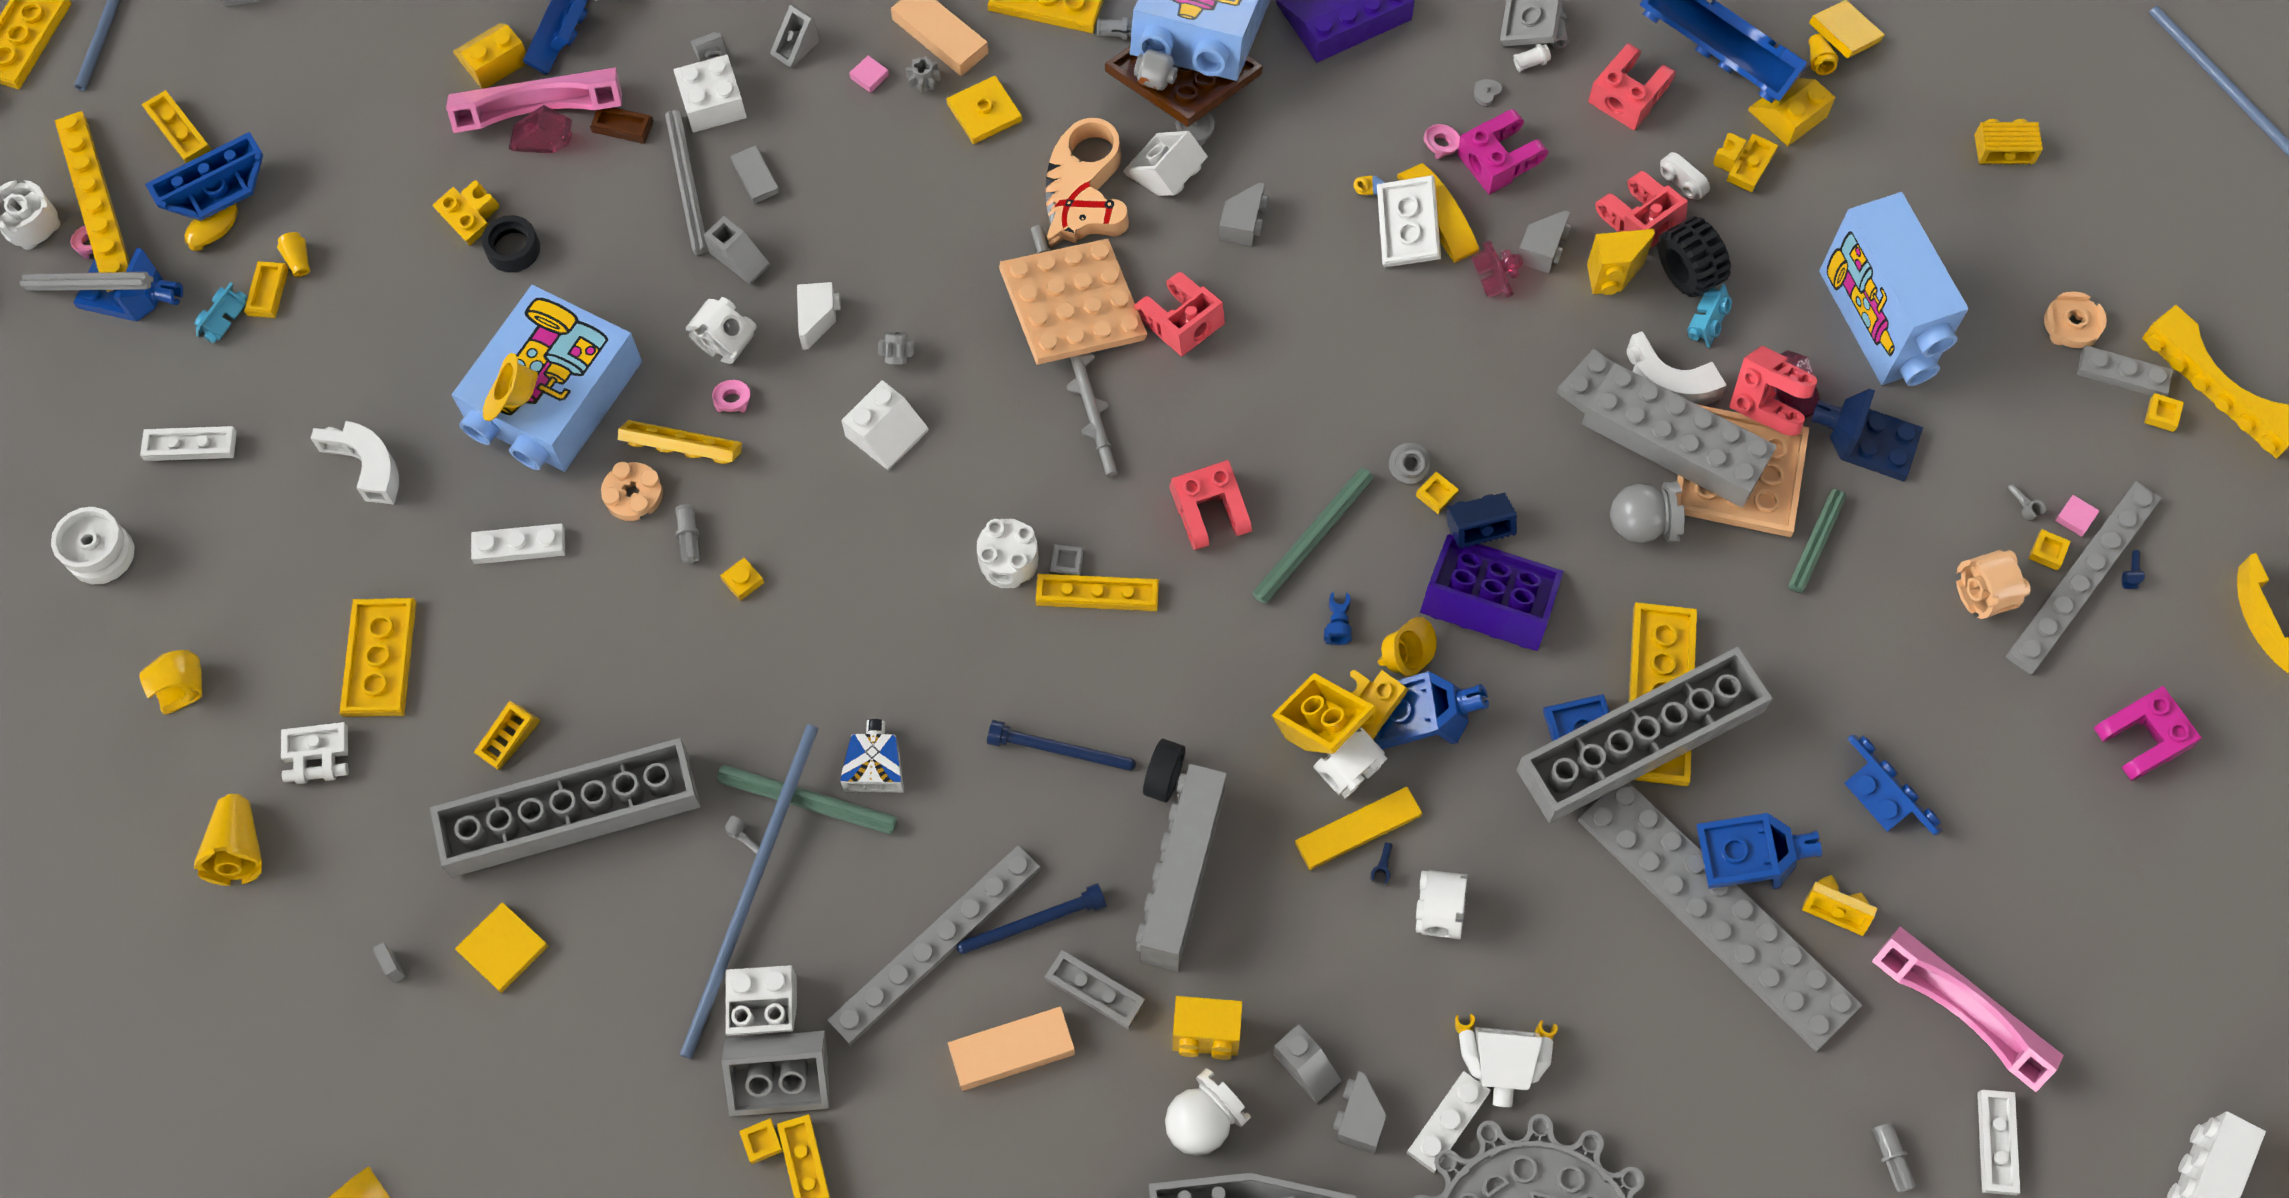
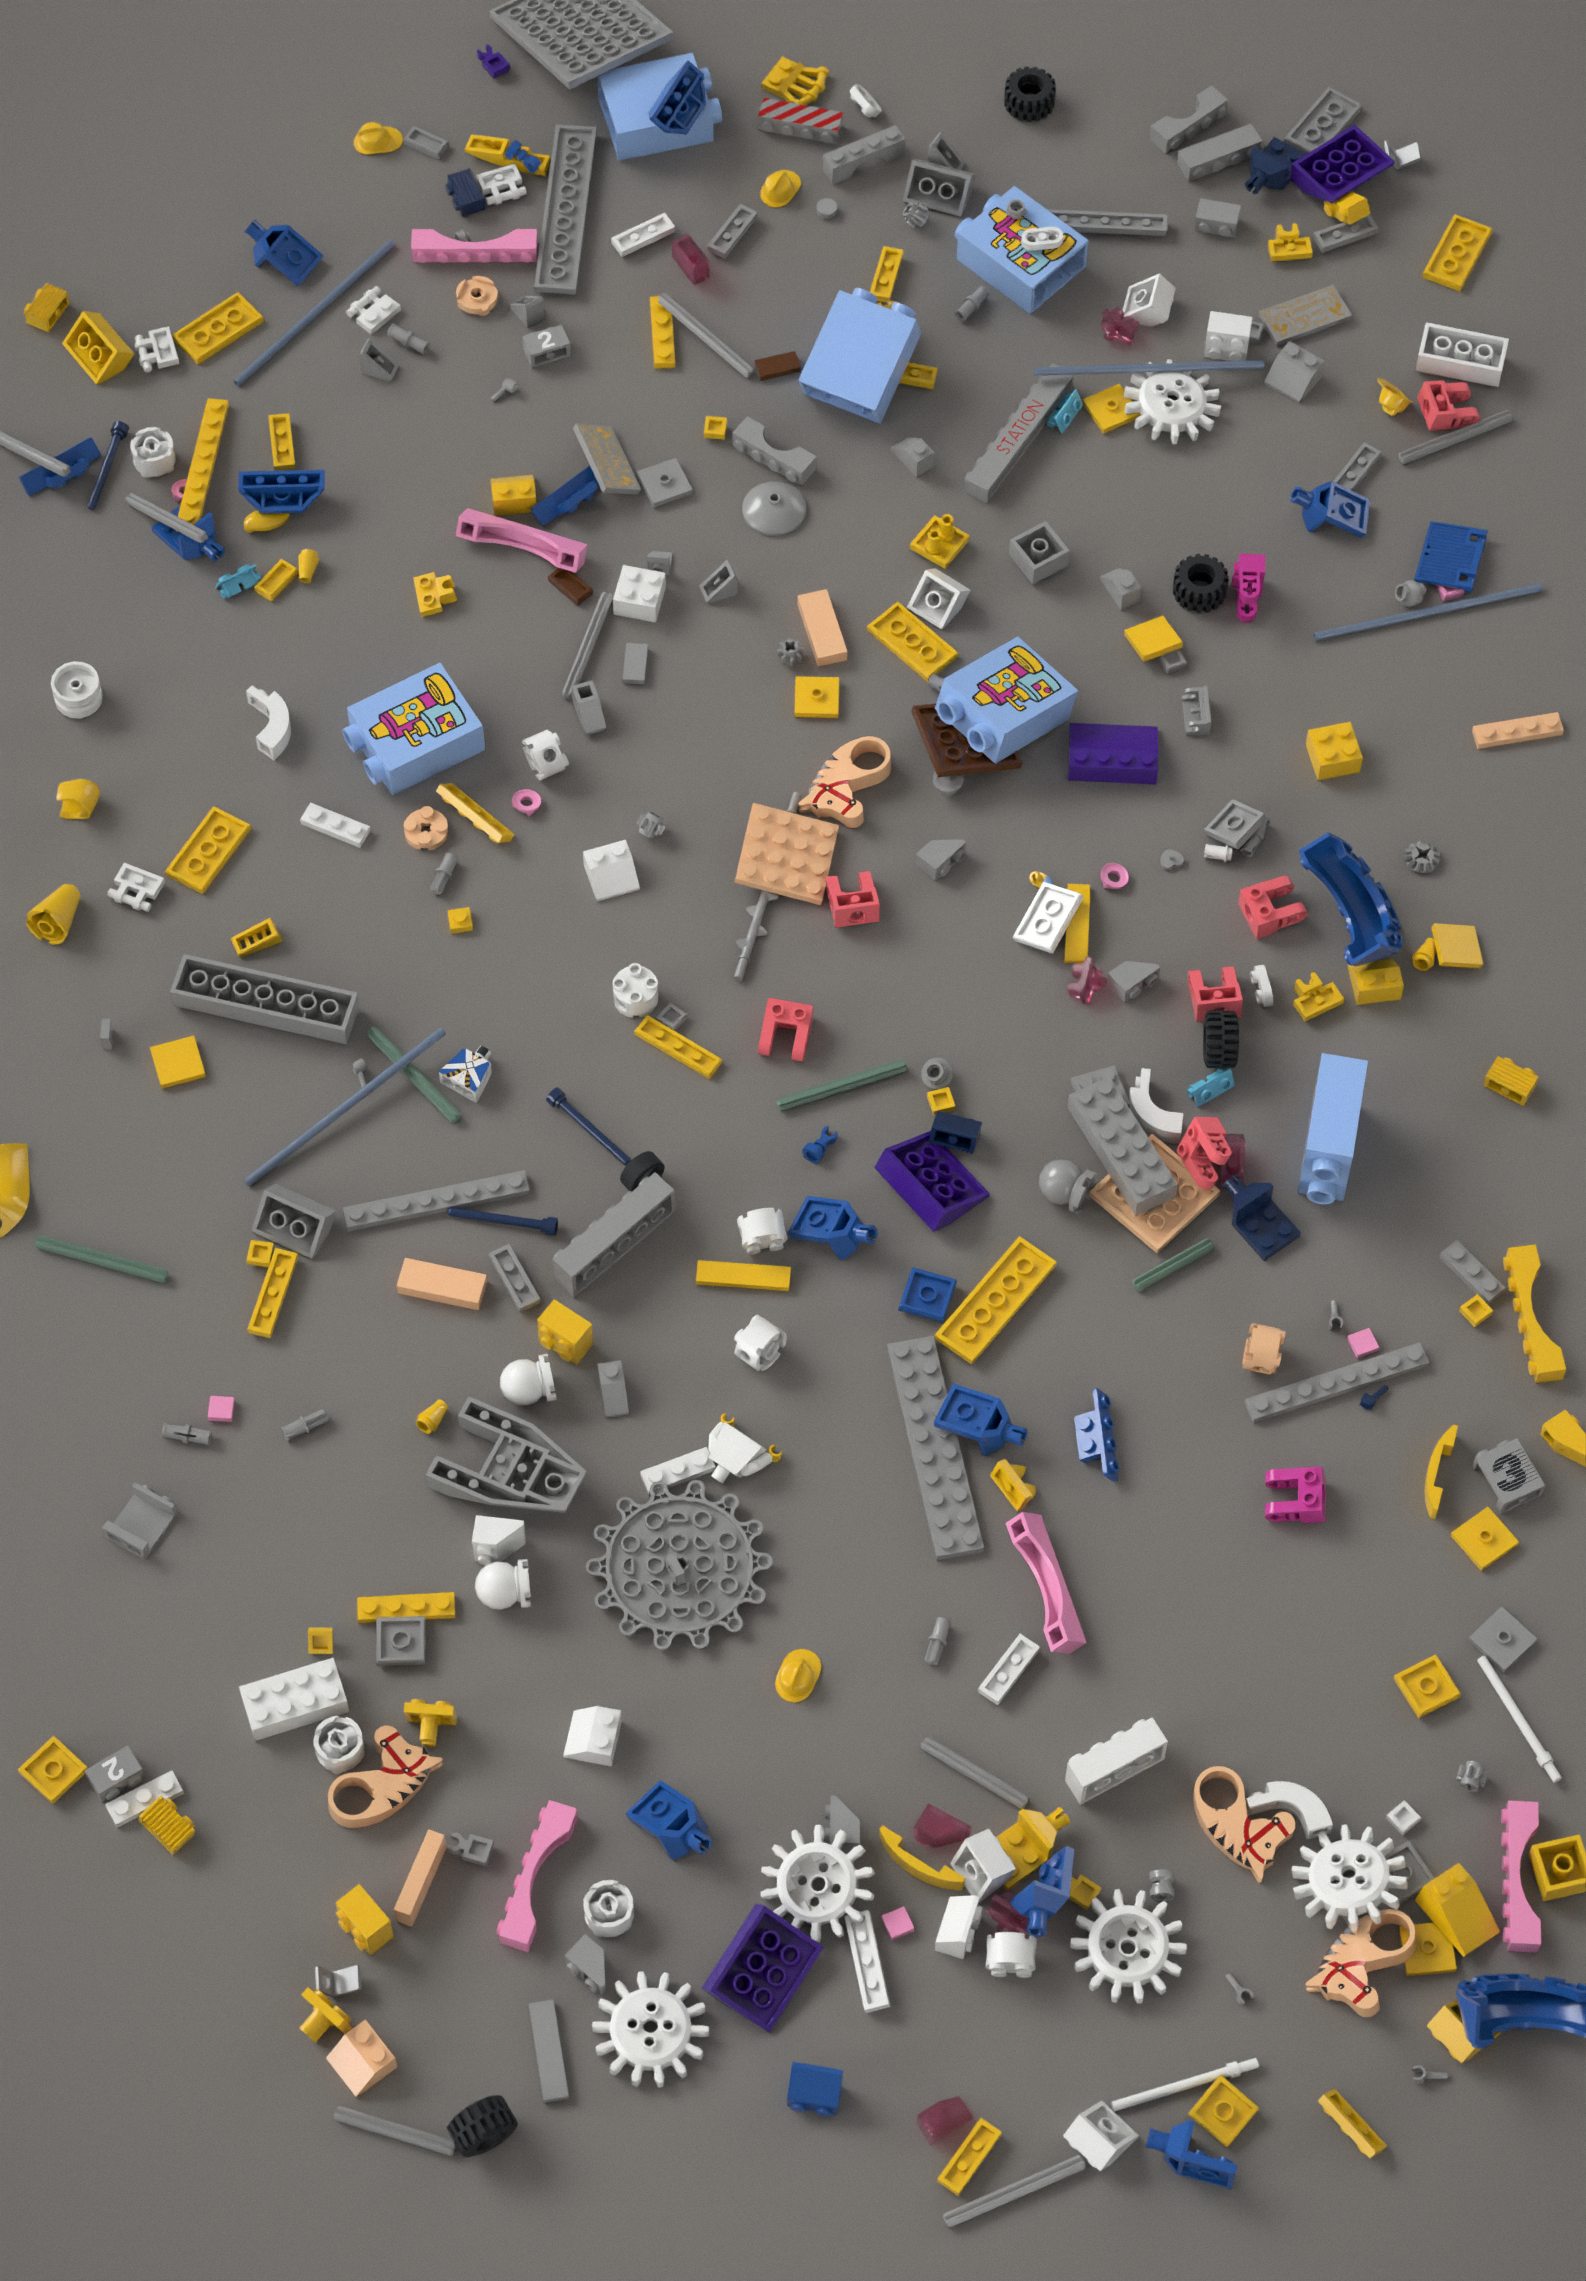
camera: 30 degrees right, 5 degrees down
(188, 443) = (170, 655): white plate -> none
(504, 226) = (448, 615): black tyre -> none
(511, 388) = (385, 722): yellow piece -> none
(541, 132) = (513, 564): clear pink slope -> none
(760, 1000) = (310, 1172): white slope -> none
(816, 311) = (614, 774): white slope -> none
(869, 74) = (755, 633): bright pink tile -> none
(1155, 70) = (938, 727): light grey head -> none
(1167, 162) = (913, 796): white slope -> none
(1321, 715) = (760, 1189): yellow slope -> none
(1363, 1118) = (624, 1437): light grey slope -> none
(1383, 693) = (802, 1202): yellow plate -> none
(1383, 863) = (742, 1306): dark blue hand -> none
(1409, 647) = (853, 1184): yellow piece -> none
(1489, 160) = (1135, 913): dark pink brick -> none
(1617, 259) = (1170, 1015): yellow slope -> none
(1643, 734) = (958, 1312): light grey brick -> none
(2049, 549) = (1324, 1352): yellow plate -> none
(2073, 335) = (1463, 1232): light nougat plate -> none

